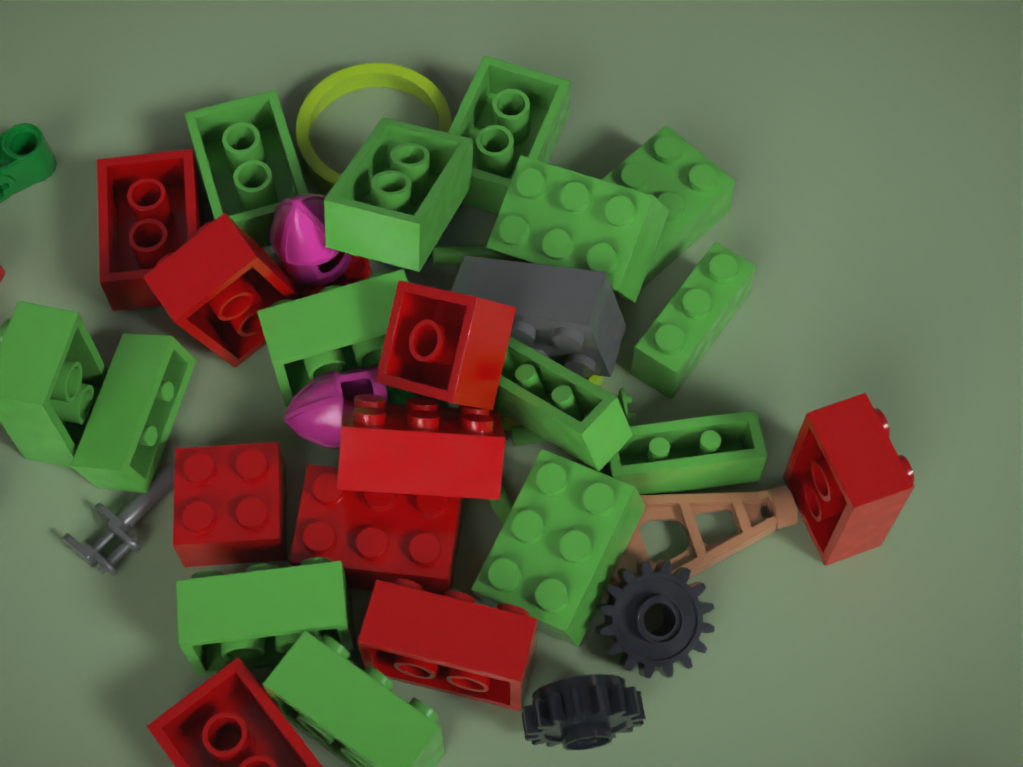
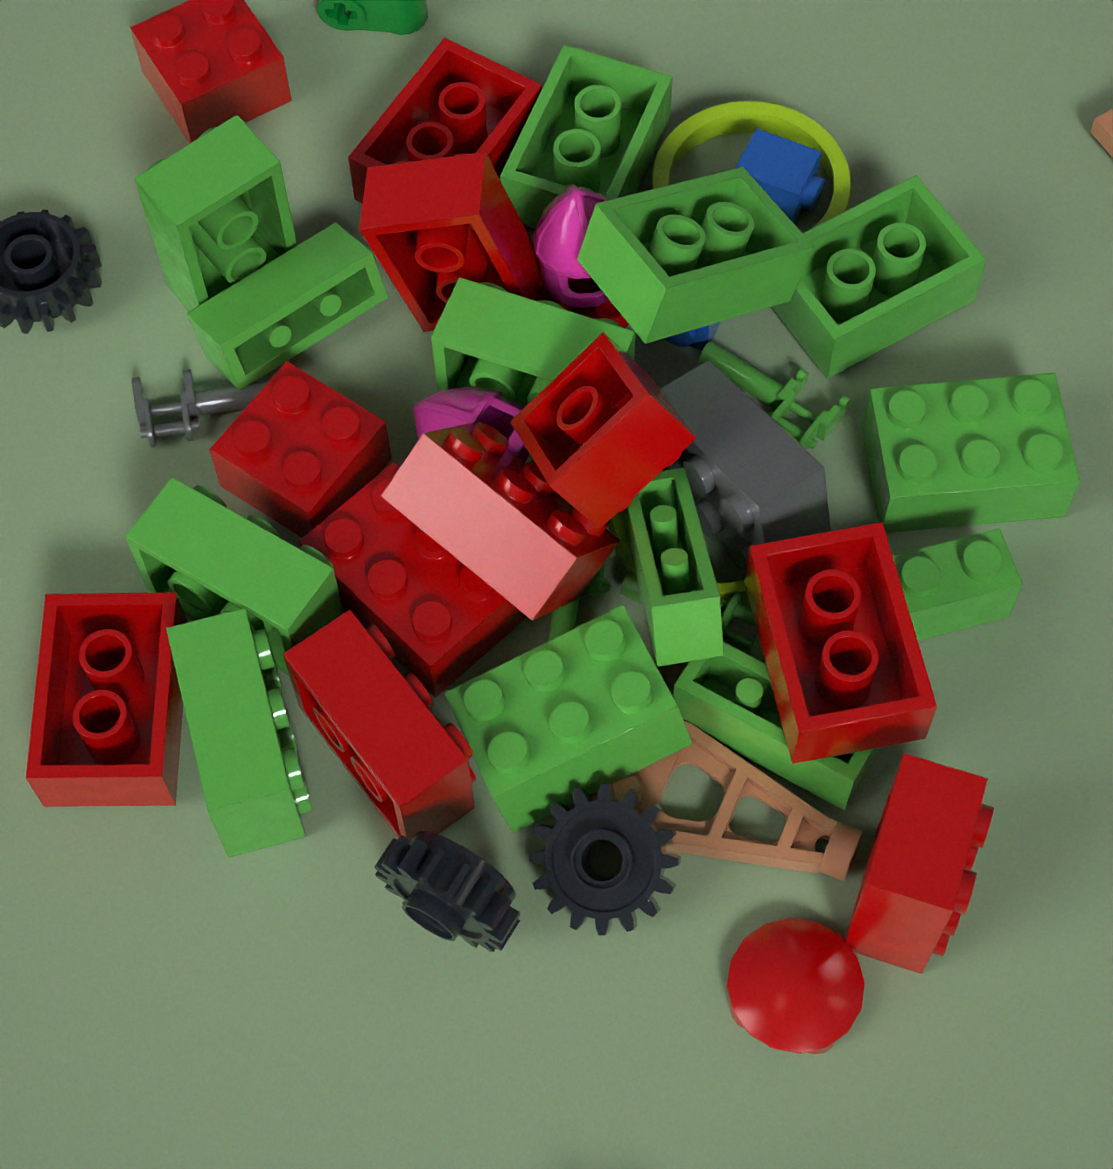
camera: 40 degrees right, 0 degrees up
(388, 101) = (785, 172): none -> blue brick
(578, 224) = (855, 413): bright green brick -> none
(698, 376) = (839, 643): none -> red brick
(821, 609) = (795, 986): none -> red dish

